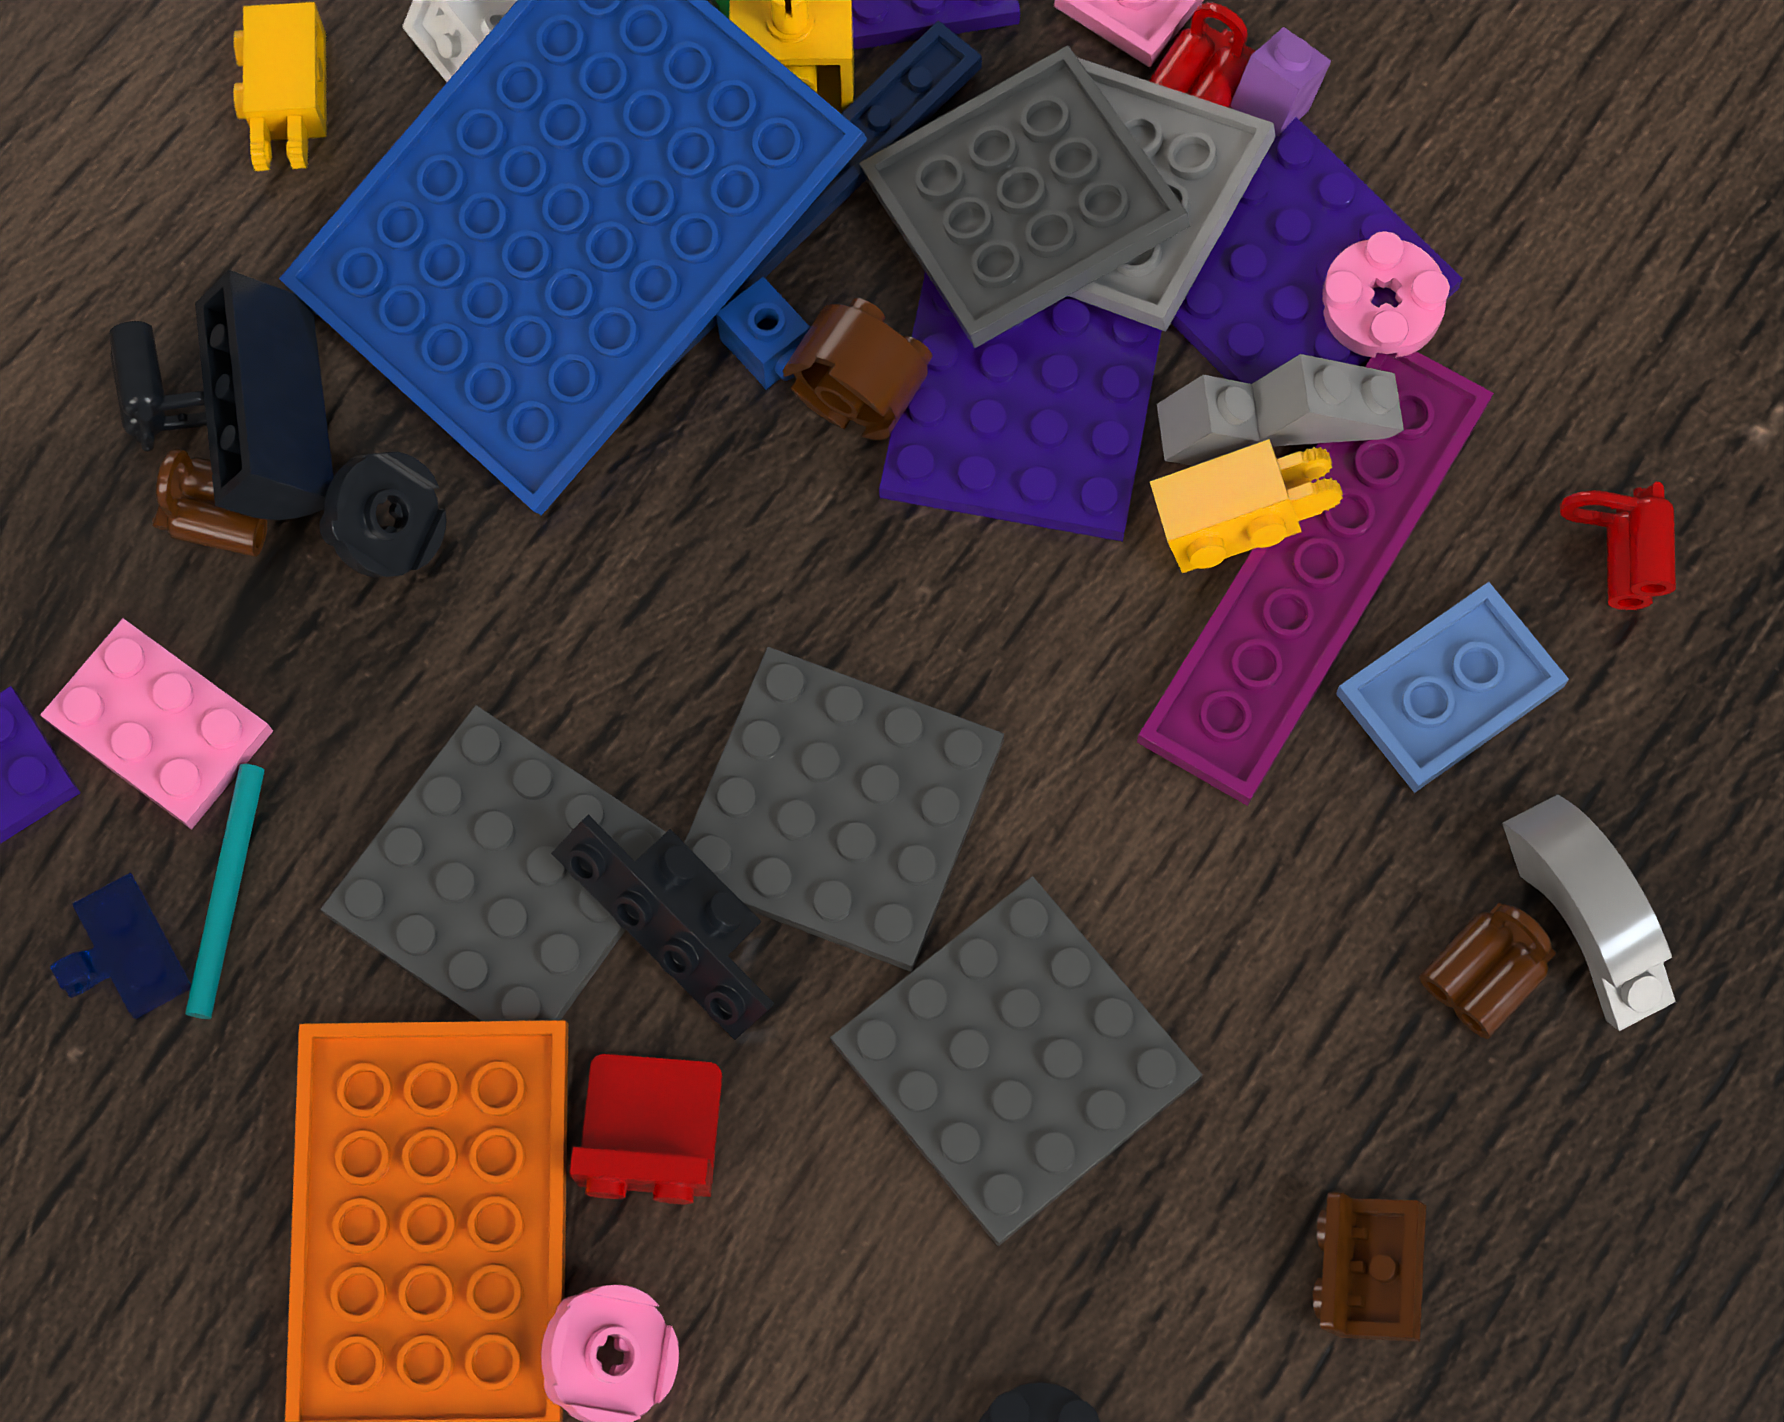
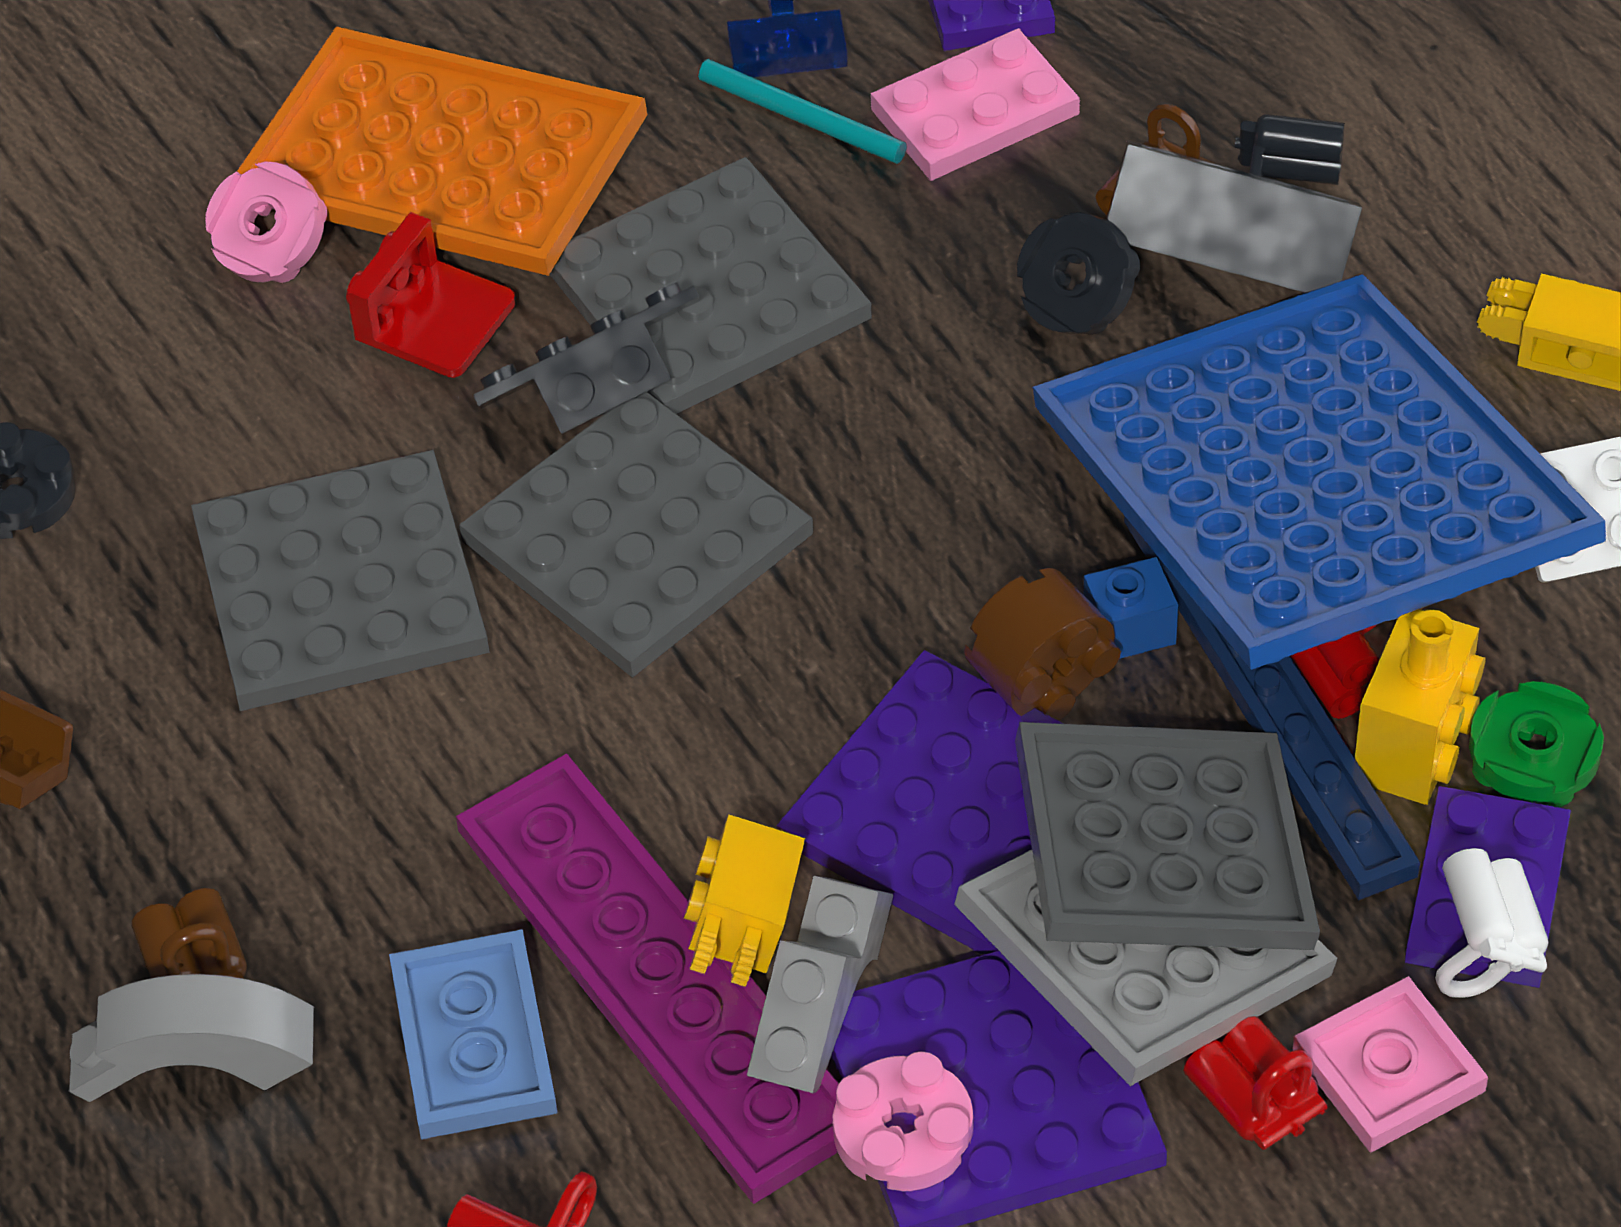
camera: 115 degrees right, 20 degrees down
(1281, 80) = (1203, 1133): medium lavender brick -> none

